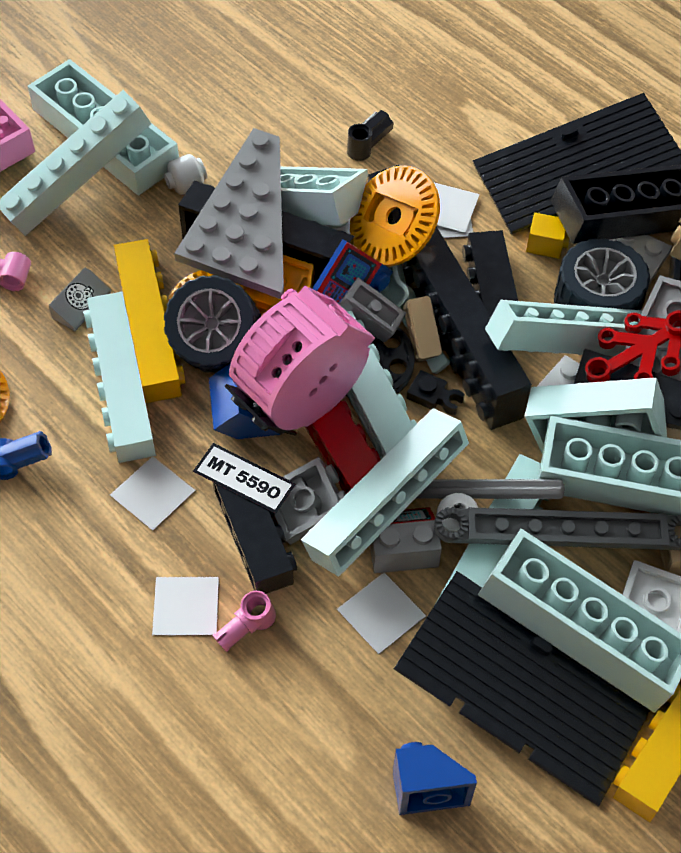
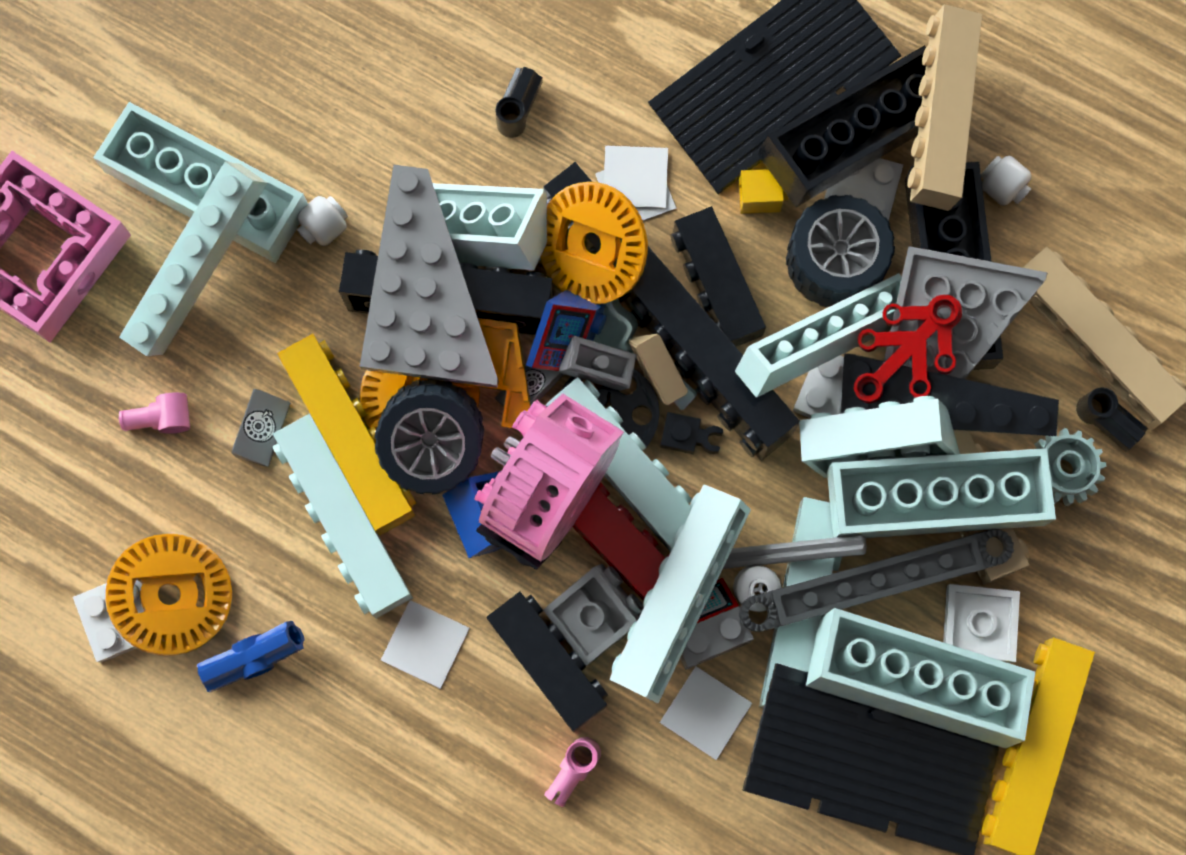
camera: 15 degrees left, 20 degrees up
(185, 606) = (504, 764): white sticker -> none
(244, 478) = (522, 612): white sticker -> none

